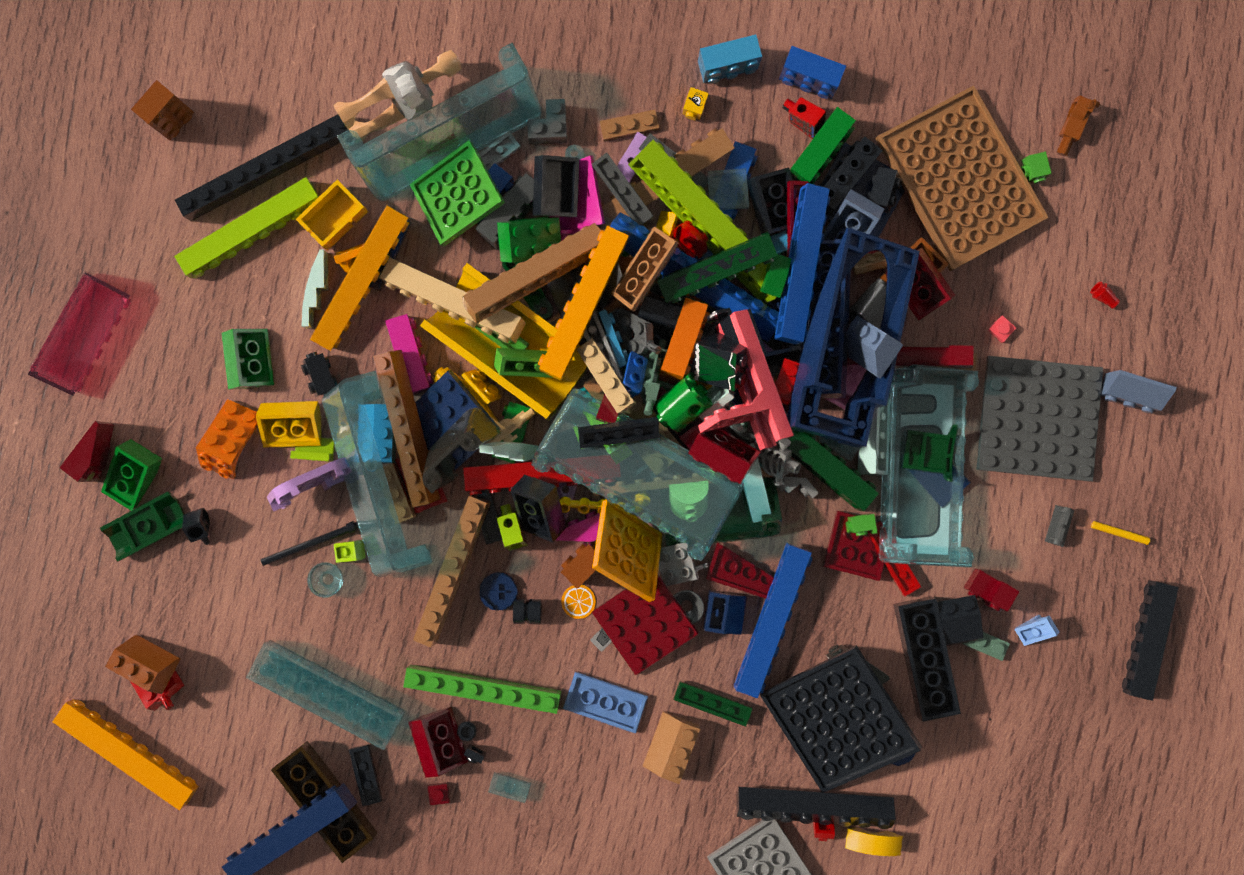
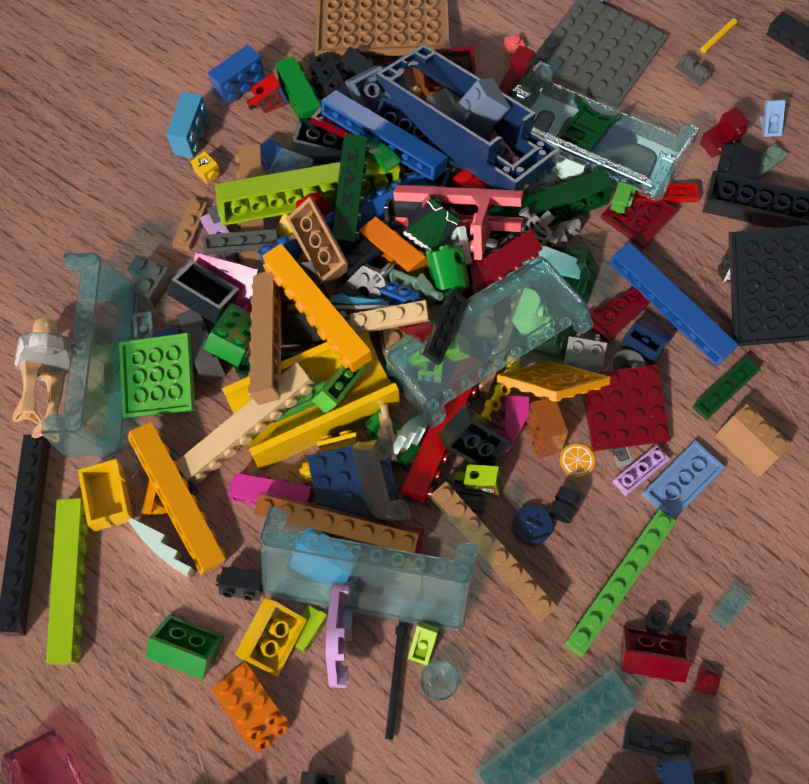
camera: 60 degrees left, 20 degrees down
(584, 657) = (633, 477): none -> lavender tile

